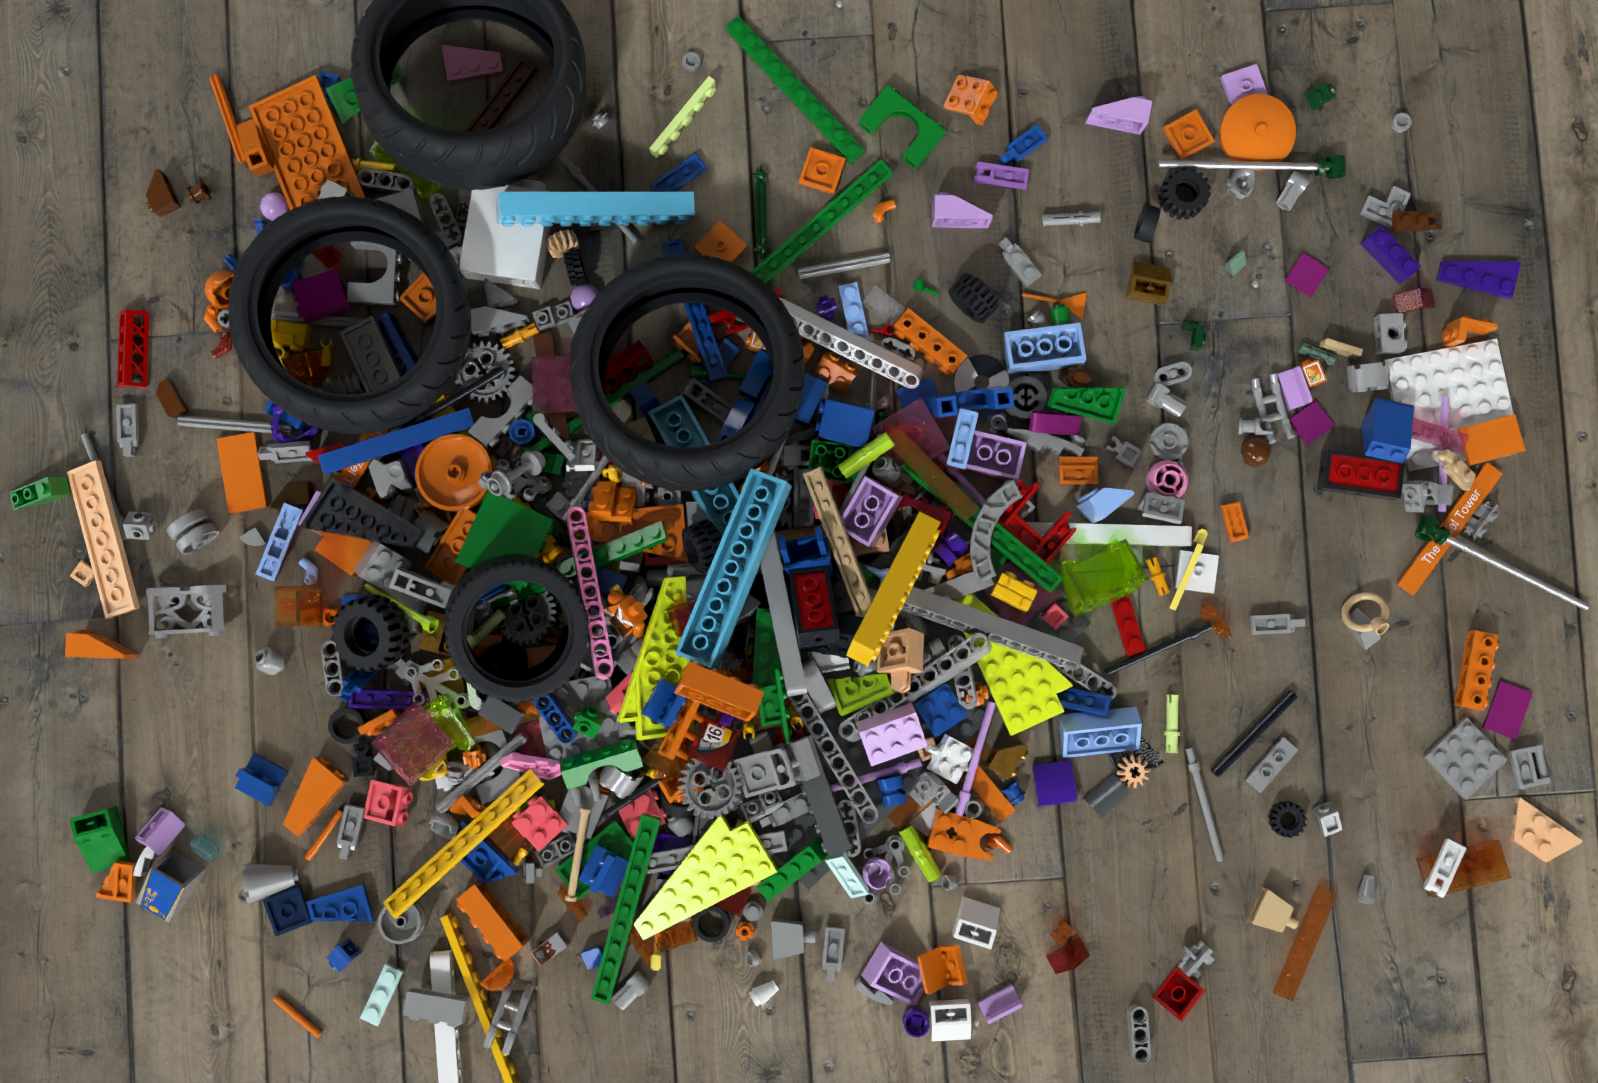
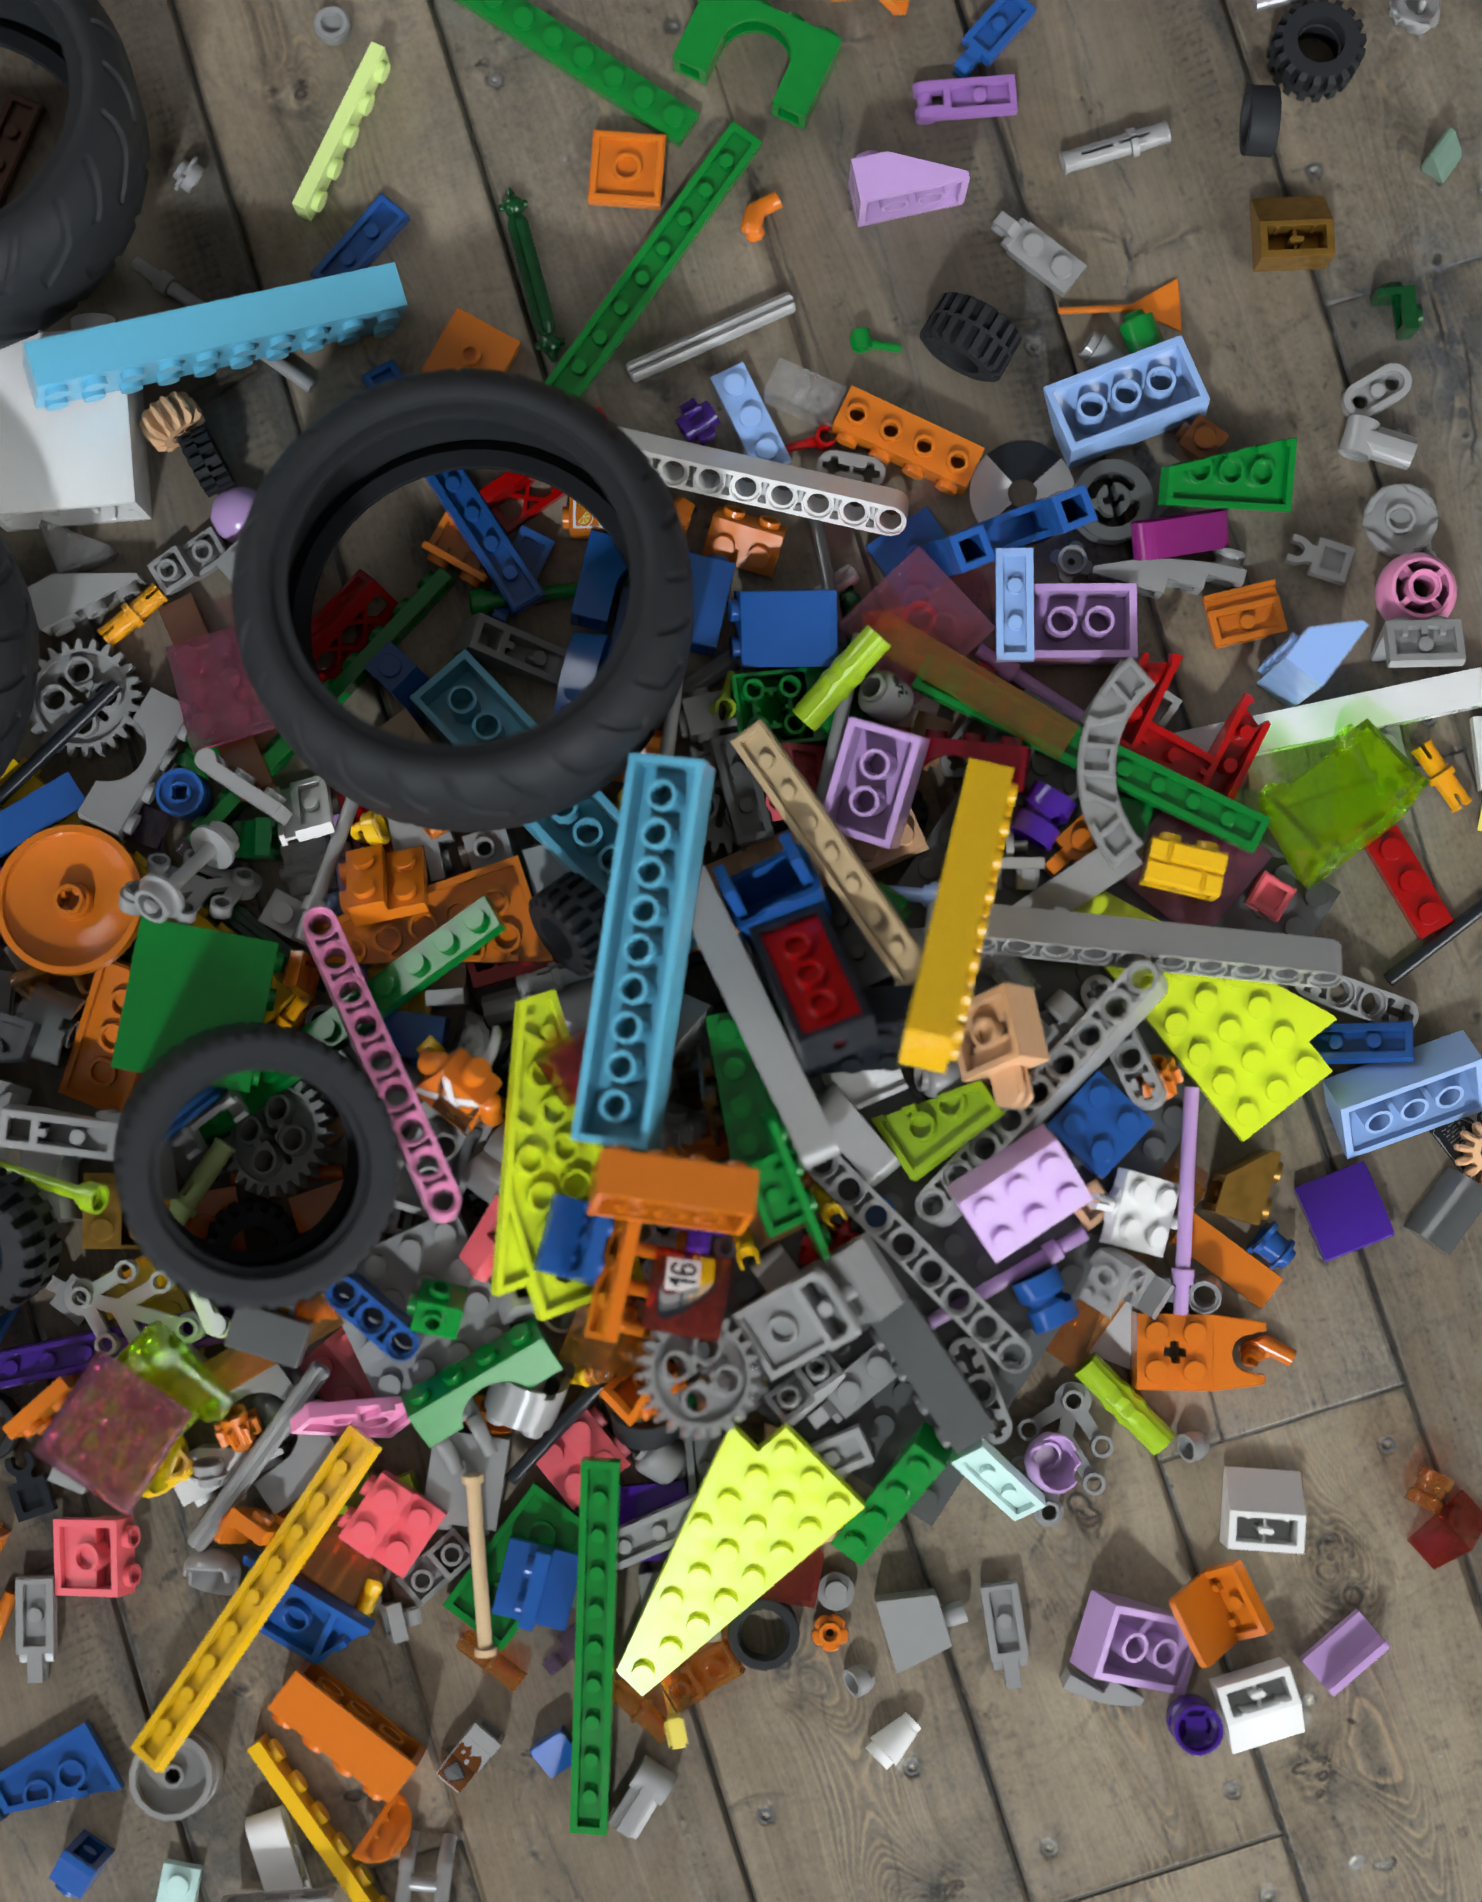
camera: 10 degrees left, 0 degrees up
(560, 537) = (301, 974): none -> orange plate
(806, 451) = (725, 699): none -> lime hand

